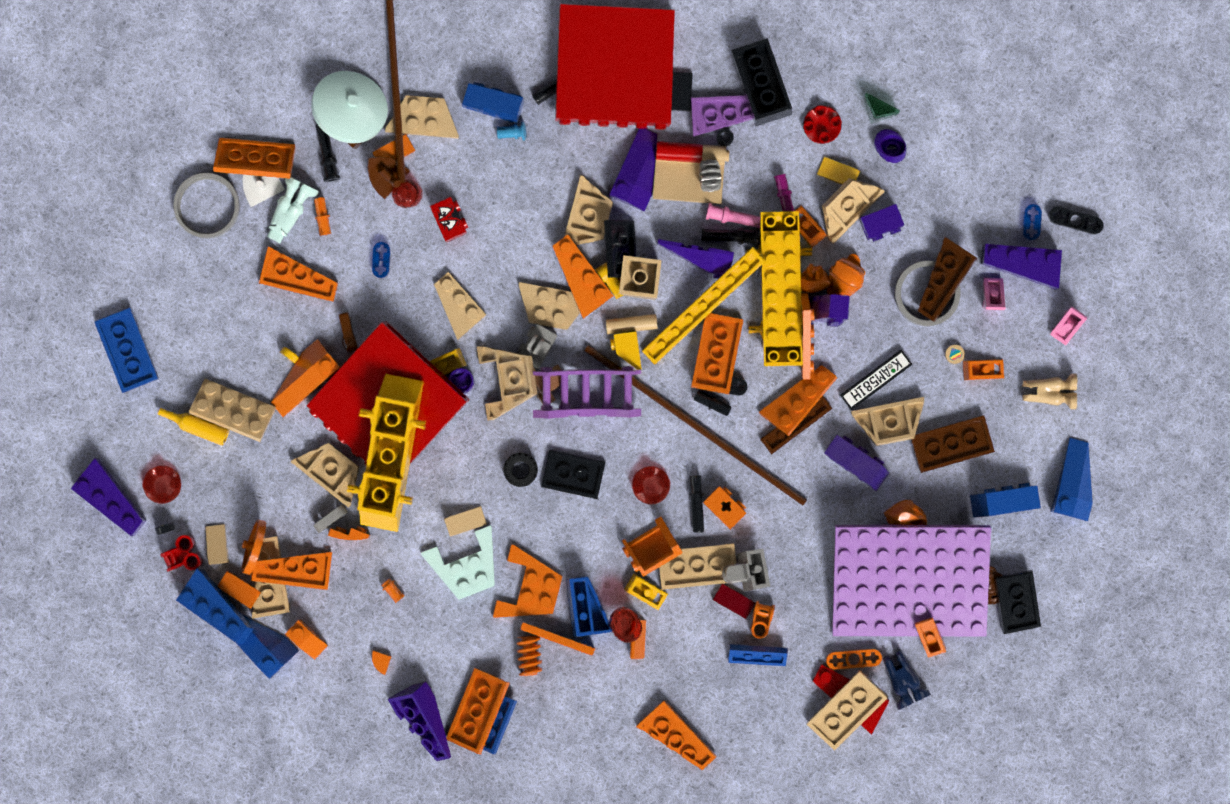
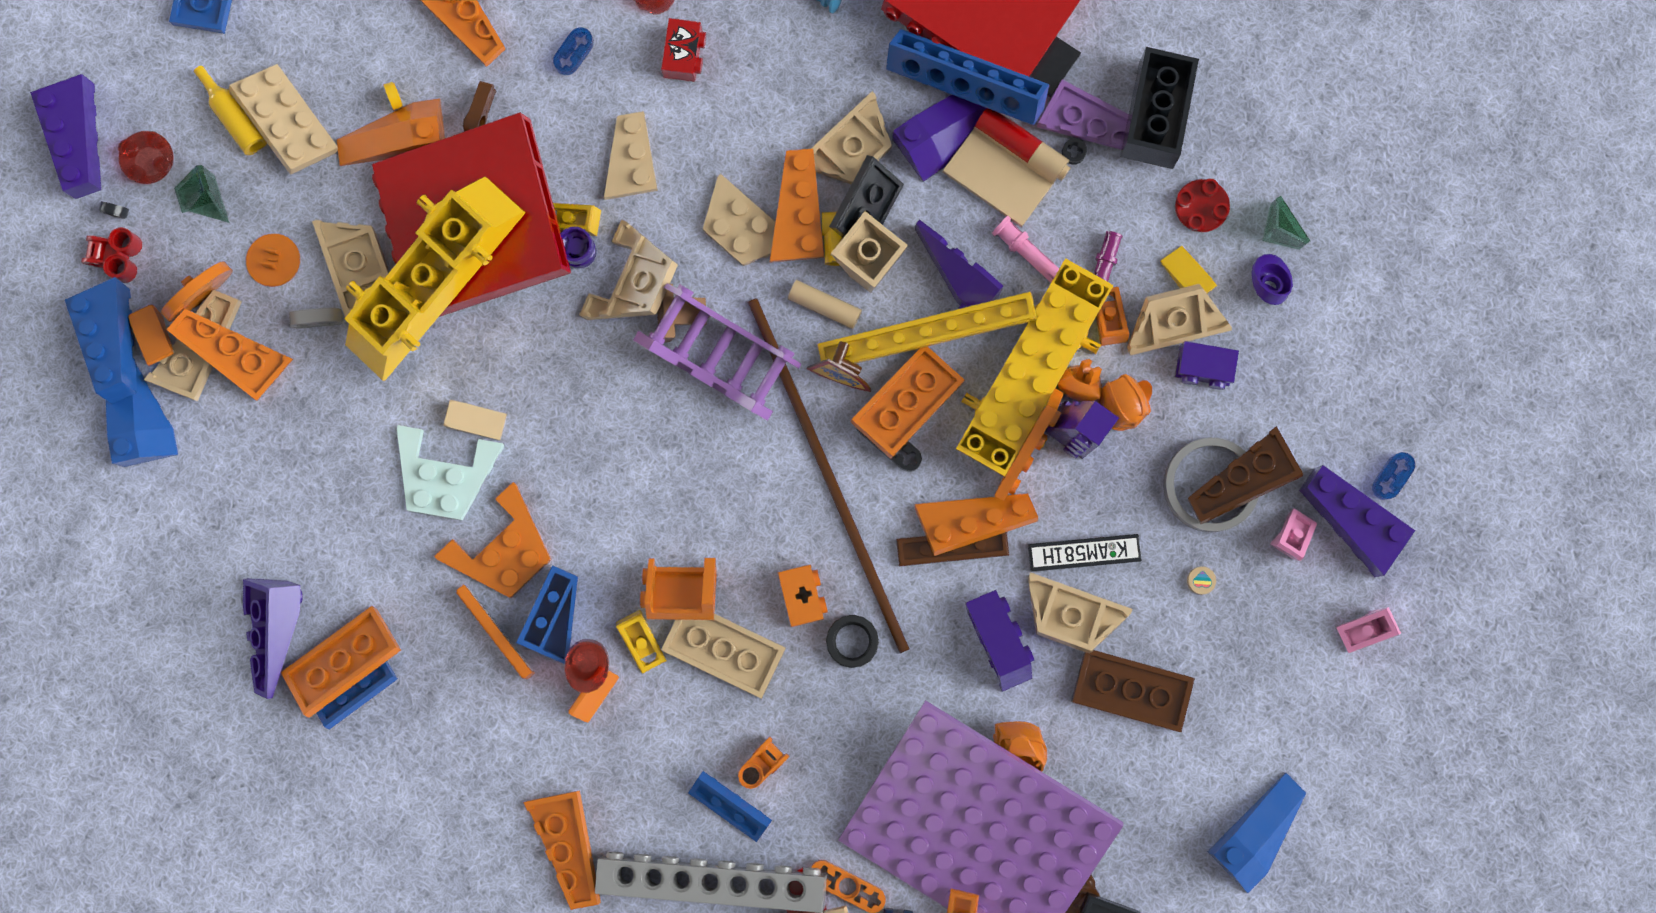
camera: 35 degrees right, 5 degrees down
(211, 487) = (201, 194): none -> clear green slope
(216, 544) = (162, 268): tan slope -> none
(279, 499) = (273, 260): none -> orange piece
(306, 639) = (192, 444): orange slope -> none
(355, 534) = (336, 355): orange slope -> none
(381, 661) = (265, 528): orange tile -> none
(392, 590) = (334, 449): orange pin -> none
(511, 478) = (569, 385): black tyre -> none
(529, 655) = (447, 632): orange piece -> none
(538, 344) = (696, 260): light grey brick -> none
(573, 474) = (642, 443): black tile -> none
(627, 348) = (801, 329): yellow slope -> none
(634, 134) = (967, 77): none -> blue brick
(651, 485) = (728, 513): clear red dish -> none
(665, 358) = (841, 369): none -> shield
(696, 504) = (769, 571): black axle -> none
(710, 175) = (1029, 180): light grey gear -> none
(712, 403) = (865, 459): black axle -> none
(715, 740) = (610, 882): none -> light grey brick
(734, 601) = (742, 720): dark red tile -> none
(740, 235) = (1022, 278): black pin -> none
(749, 570) = (784, 693): light grey brick -> none
(770, 530) = (872, 636): none -> black tyre
(982, 369) = (1225, 620): orange slope -> none
(1005, 501) = (1159, 802): blue wedge -> none
(1049, 391) = (1296, 697): tan piece -> none
(1088, 229) = (1440, 487): black beam -> none

